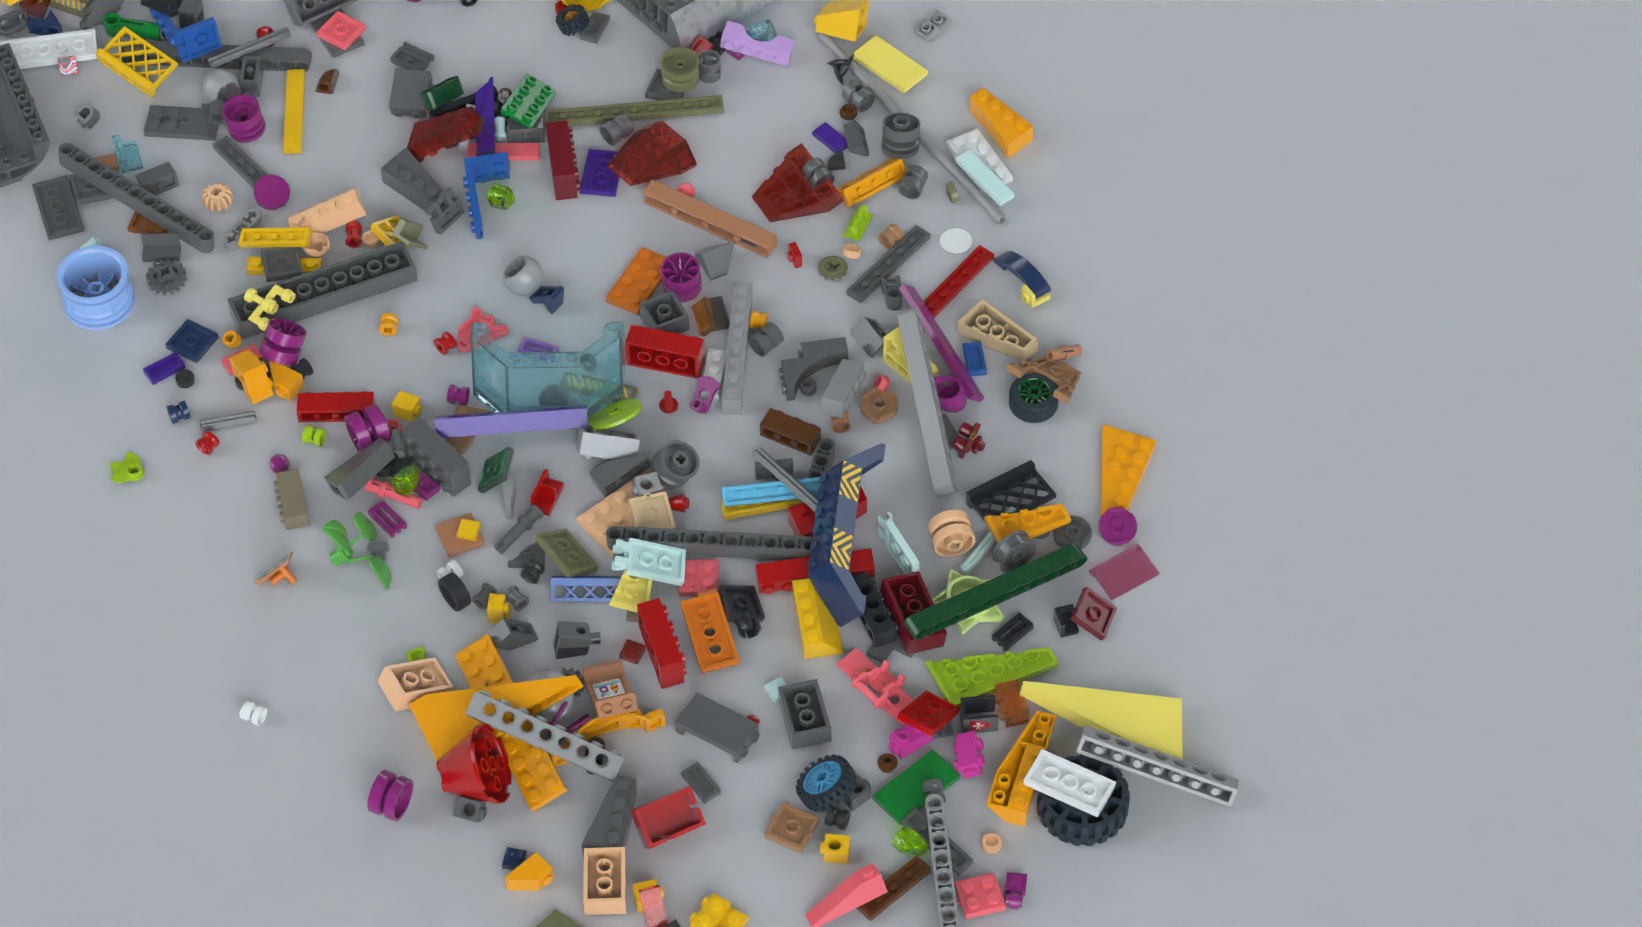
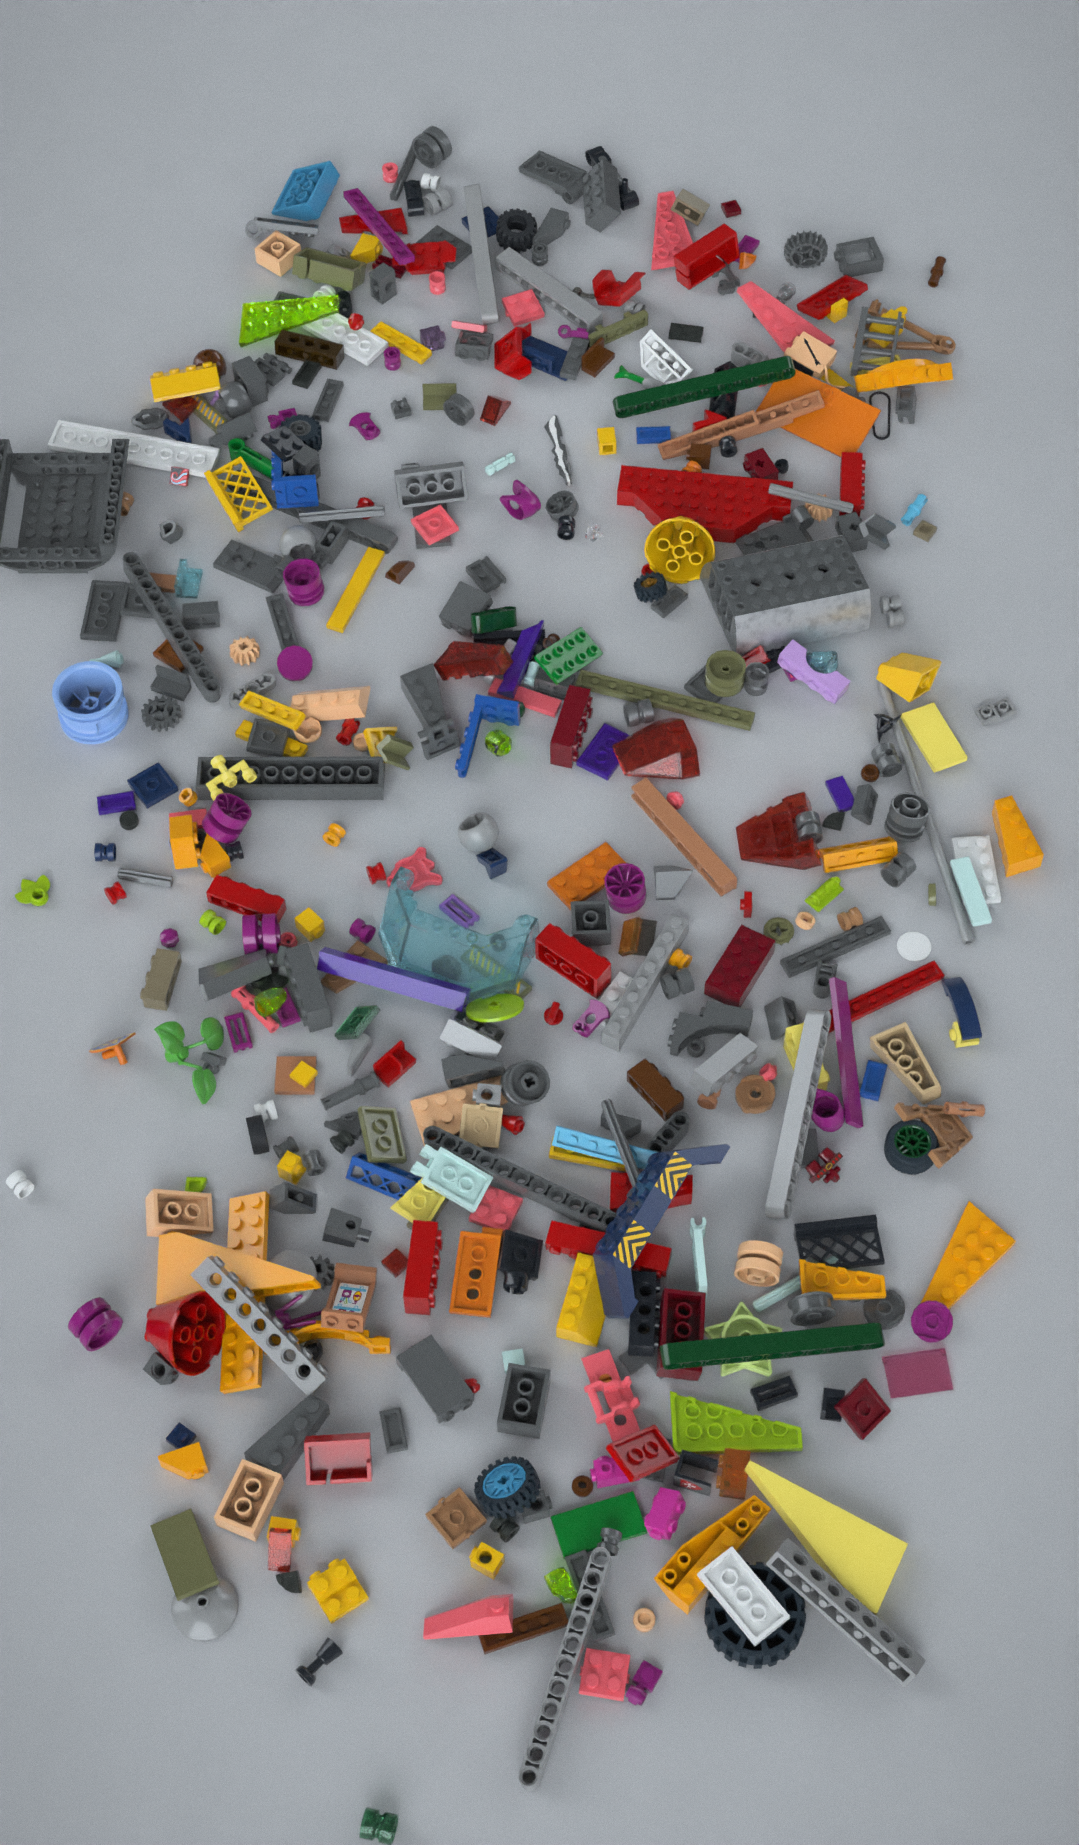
camera: 25 degrees right, 5 degrees up
(814, 306) = (739, 967): none -> dark red brick

